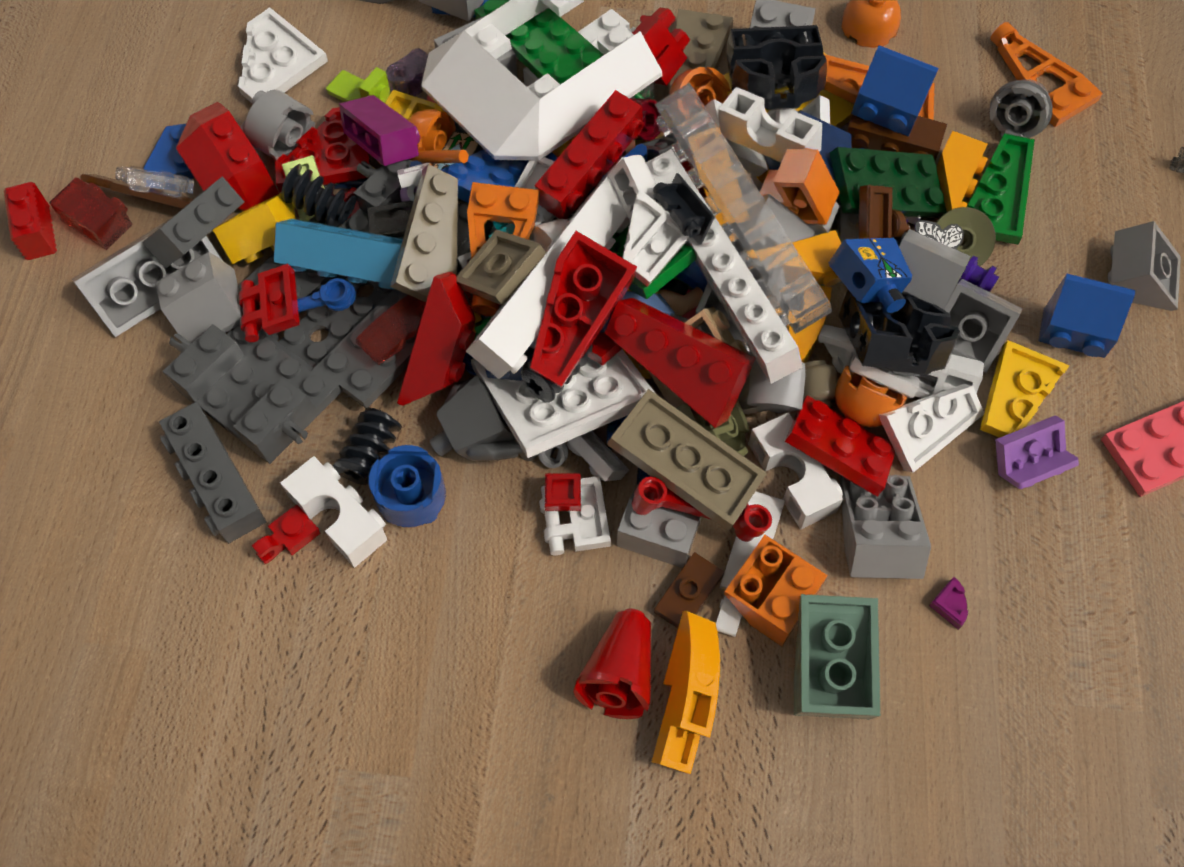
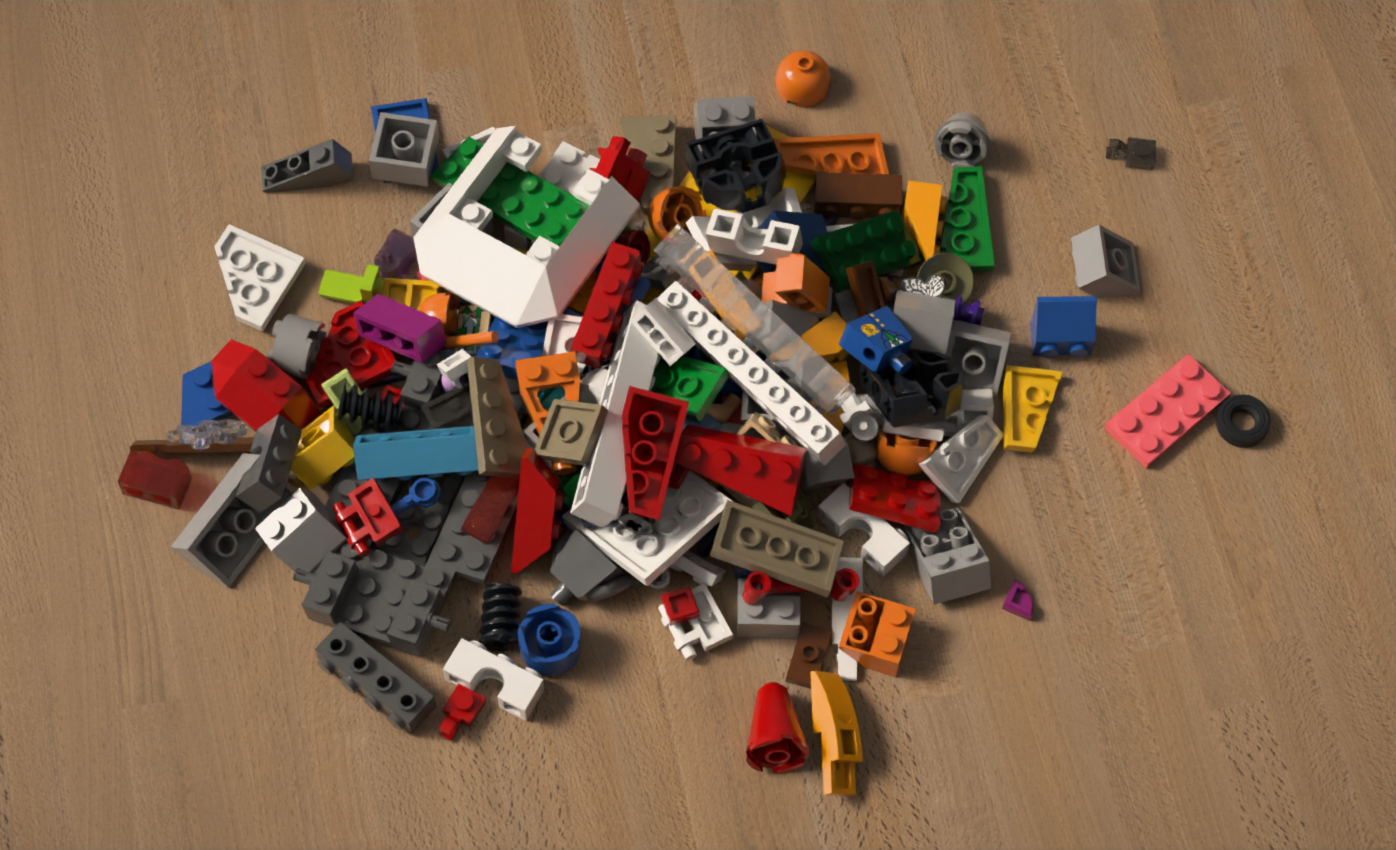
camera: 20 degrees left, 0 degrees up
(29, 221) = (102, 503): red brick -> none
(651, 238) = (690, 370): white wing -> none
(686, 208) = (713, 338): black hinge -> none
(827, 346) = (859, 418): none -> white hips
(837, 658) = (941, 671): sand green slope -> none
(894, 90) = (847, 164): blue slope -> none
(1034, 453) = (1052, 458): medium lavender bracket -> none
(1068, 99) = (1000, 116): orange plate -> none

